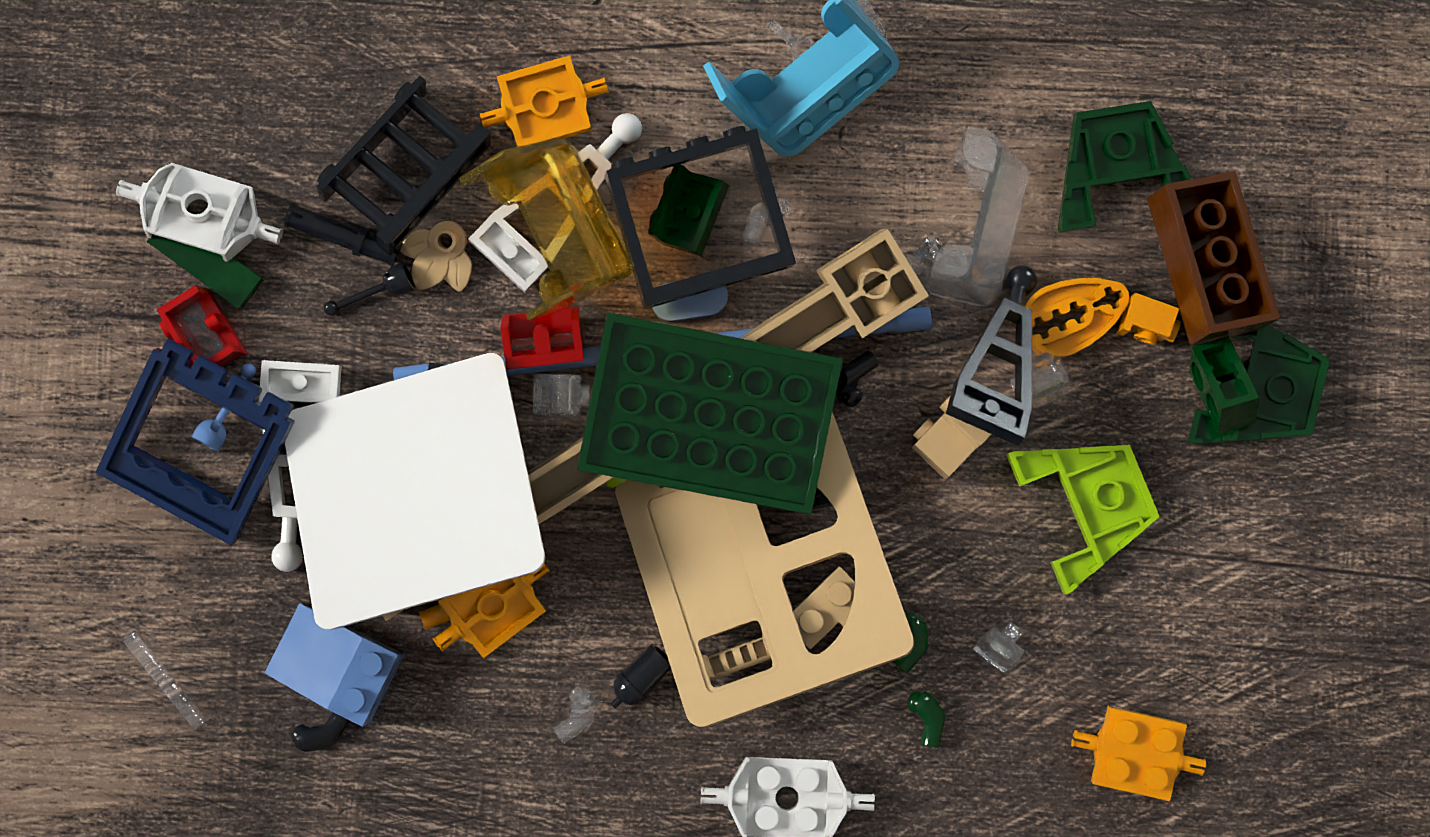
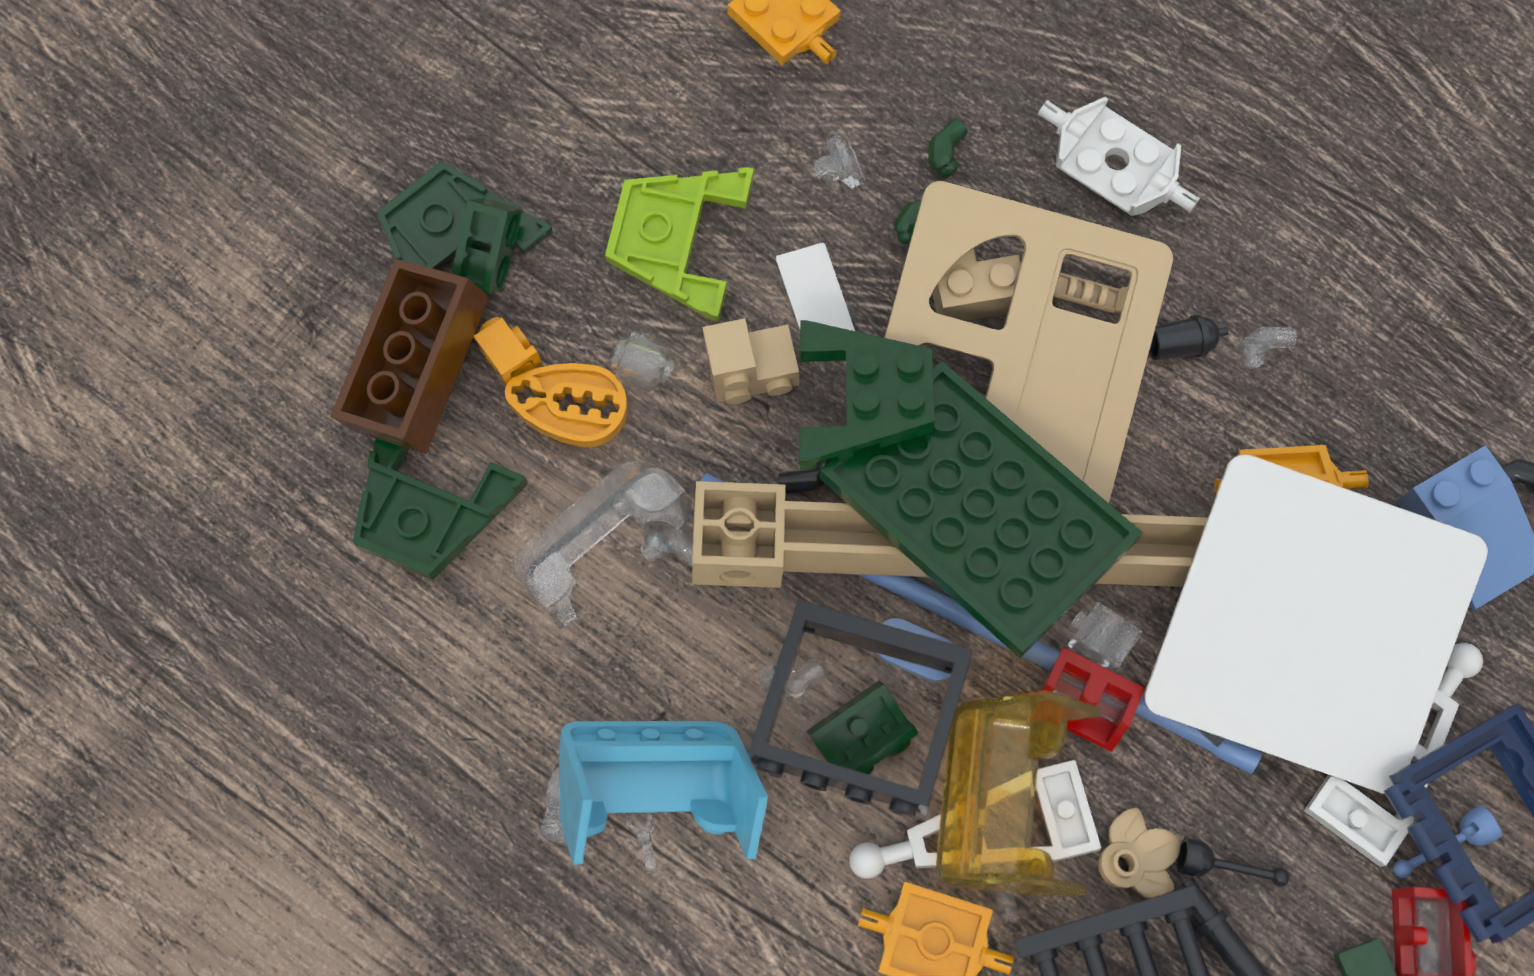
camera: 140 degrees left, 10 degrees down
(836, 456) = (885, 392): none -> dark green wing
(946, 526) = (814, 287): none -> white sticker
(986, 407) = (724, 347): plate -> none

